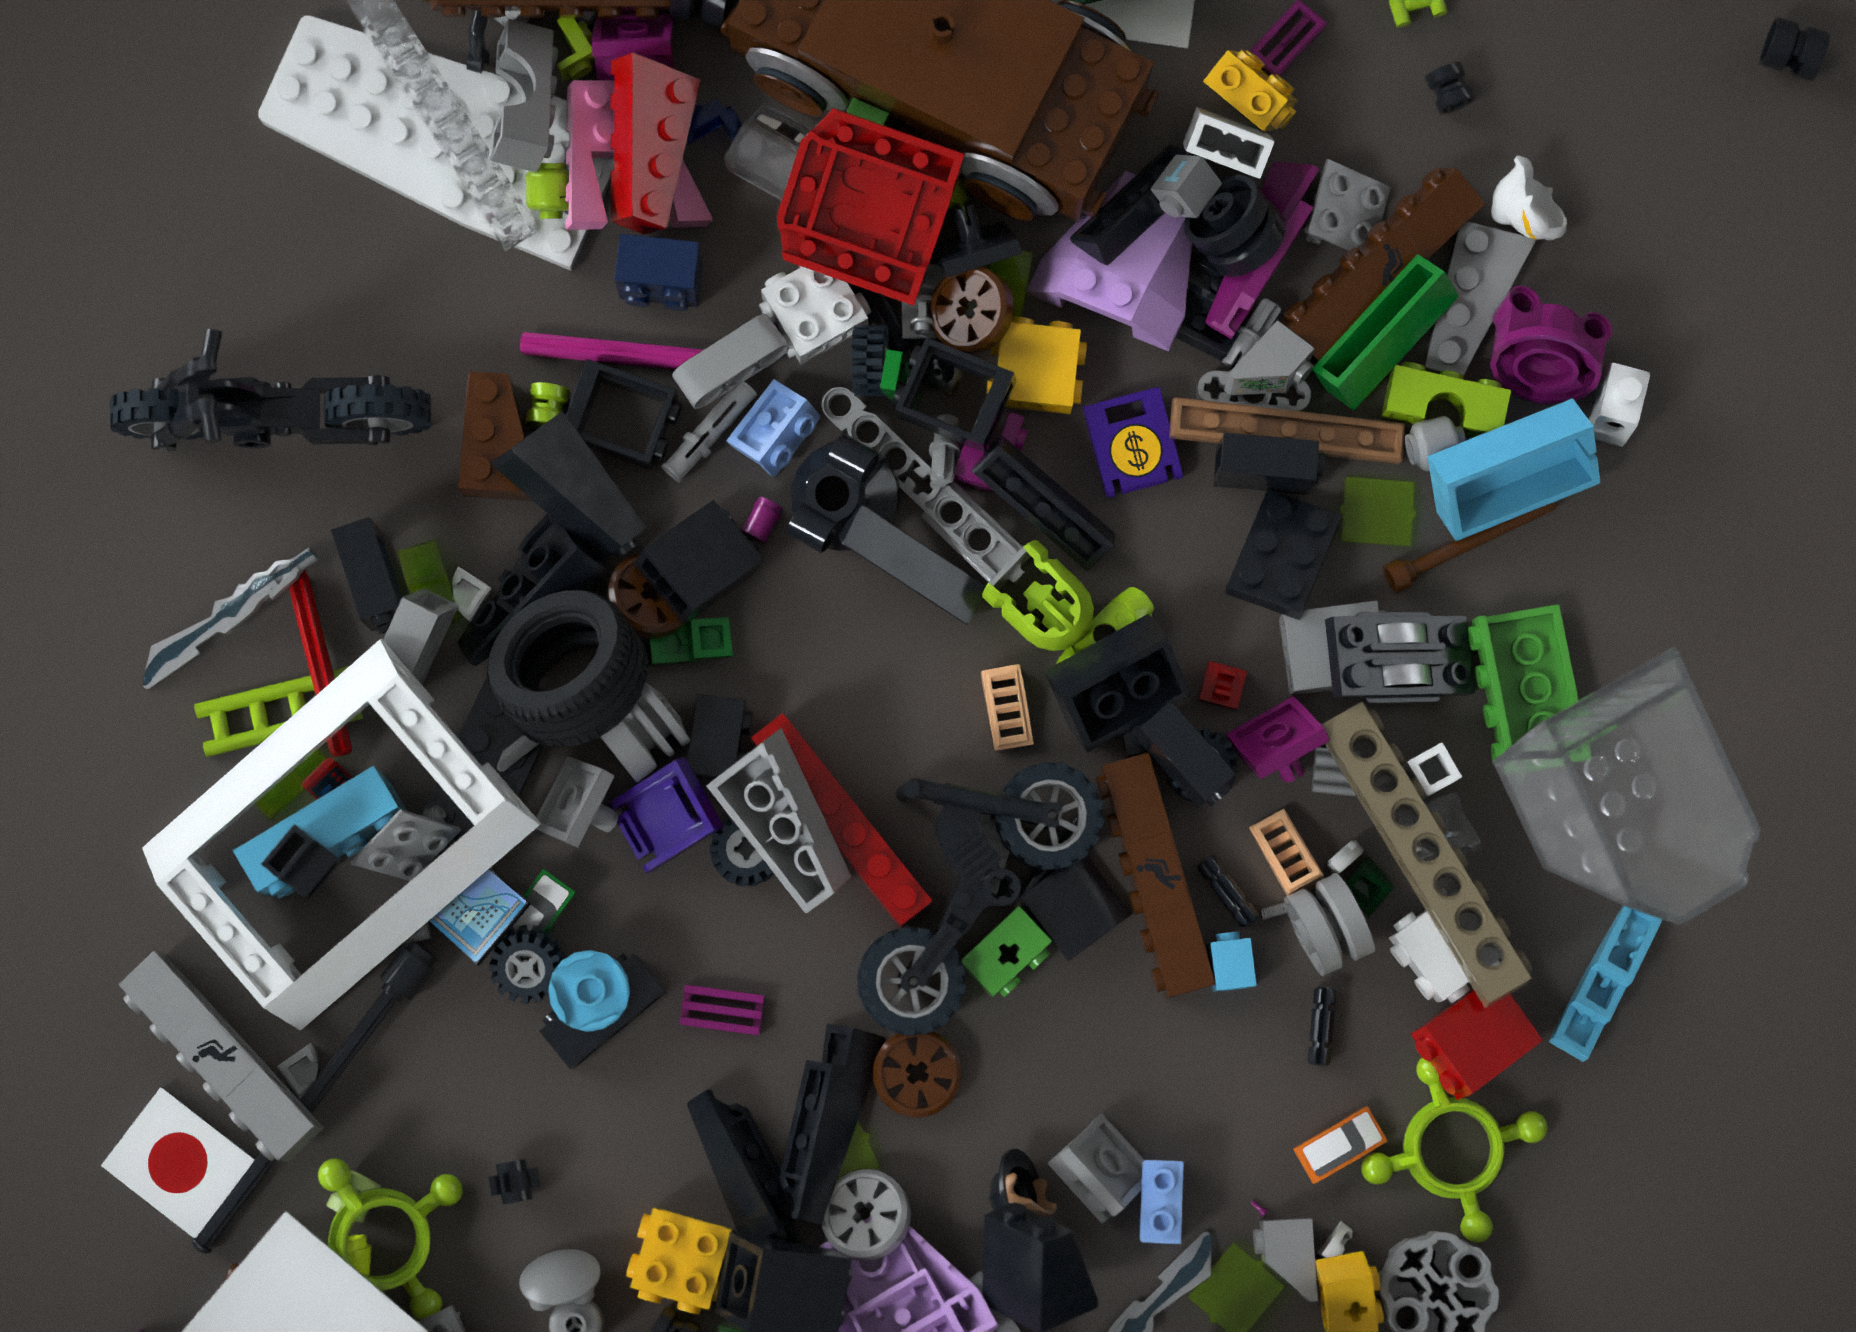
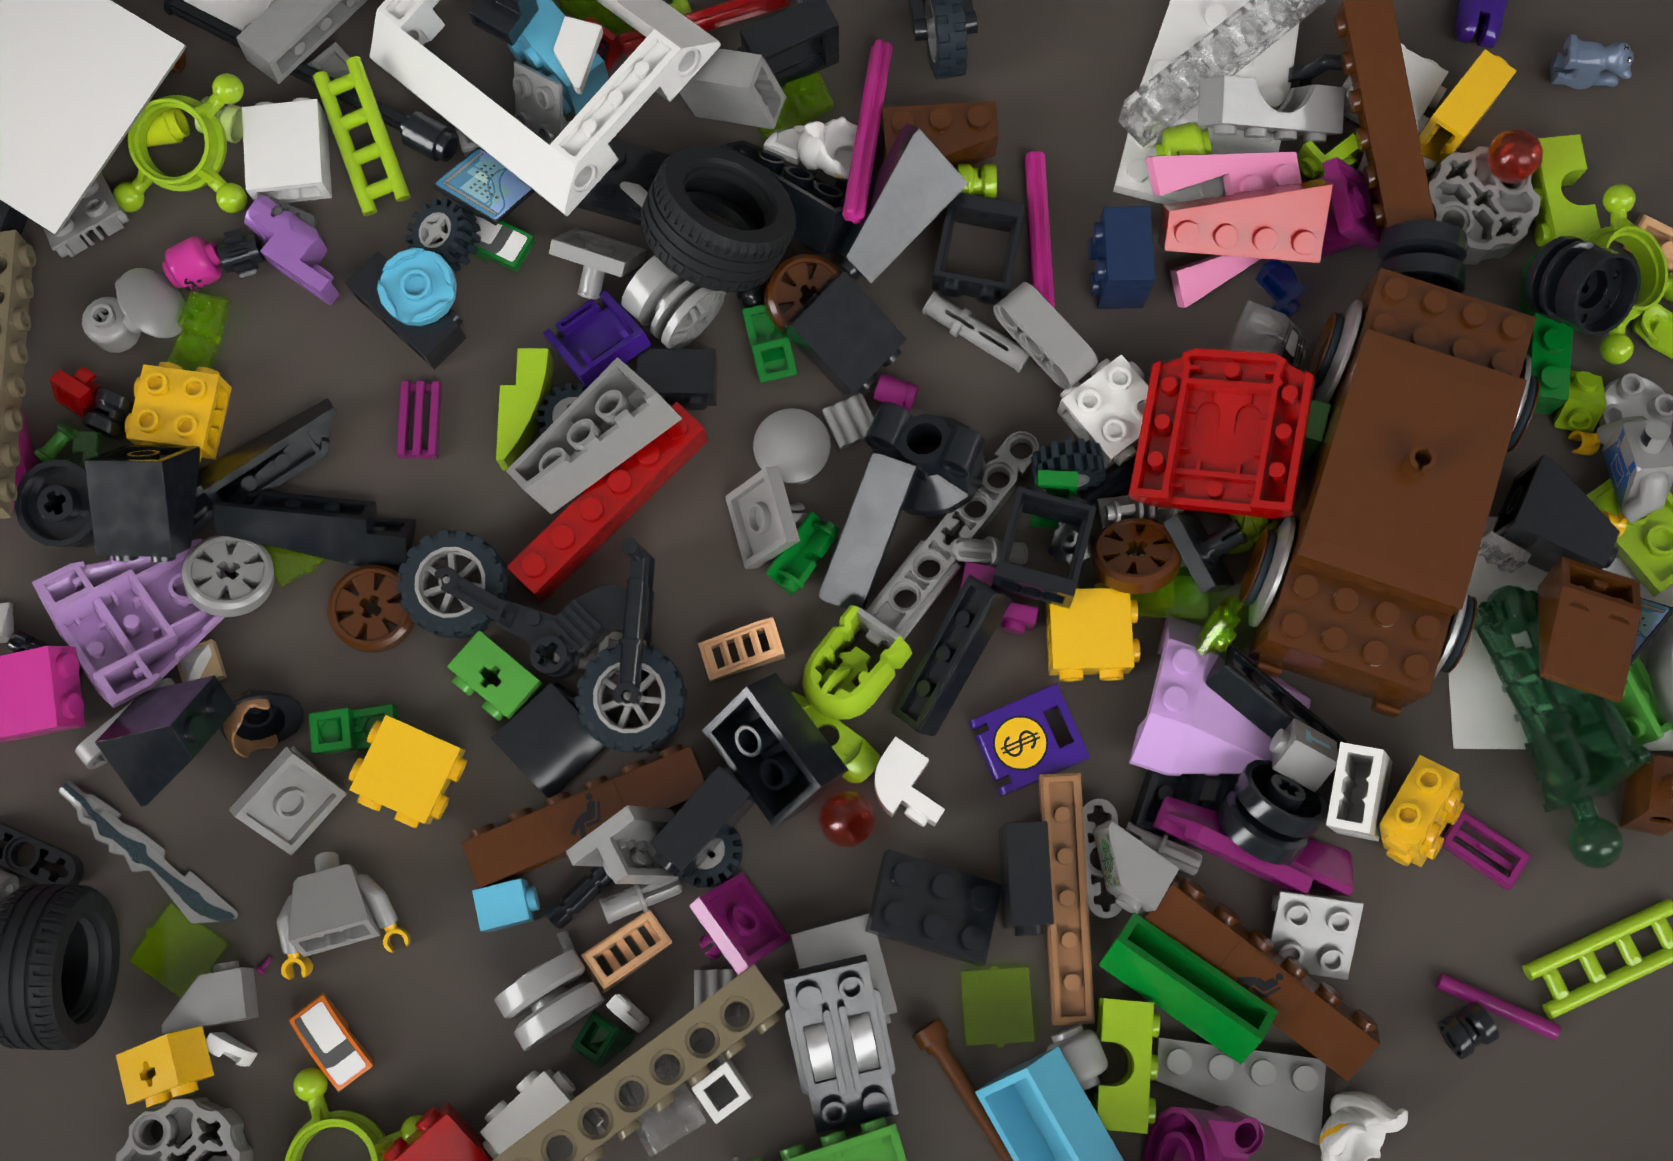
camera: 90 degrees right, 5 degrees down
(360, 791) = (577, 49): none -> white tile
(376, 1030) = (380, 148): none -> lime bar
(401, 1126) = (287, 150): none -> white brick
(478, 507) = (867, 132): none -> dark pink axle
(491, 542) = (828, 146): none -> white hair
(509, 1124) = (292, 244): none -> medium lavender plate
(517, 1234) = (191, 262): none -> dark pink head
(594, 1235) = (202, 327): none -> clear neon green slope
(724, 898) = (520, 403): none -> lime slope
(774, 427) = (988, 391): light blue bracket -> none
(785, 571) = (848, 421): none -> light grey piece
(803, 632) = (793, 442): none -> light grey dish
(881, 667) = (763, 517): none -> light grey tile
(931, 645) = (797, 562): none -> green hinge
(956, 1249) = (202, 662): none -> tile
(1038, 1100) = (345, 728): none -> green slope
(1051, 245) = (1218, 629): none -> clear neon green slope
(1092, 1046) = (406, 772): none -> yellow brick
(1158, 575) = (894, 784): none -> white brick
(1161, 1201) = (255, 861): light blue bracket -> none
(1189, 625) = (847, 819): none -> clear red piece
(1197, 832) = (625, 846): none -> light grey bracket
(1219, 1130) = (333, 911): none -> light grey torso
(1222, 685) = (792, 863): red tile -> none
(1238, 834) = (638, 898): none -> light grey axle
(1322, 1026) = (452, 1008): black axle -> none
(1430, 57) = (1498, 1006): none -> magenta bar

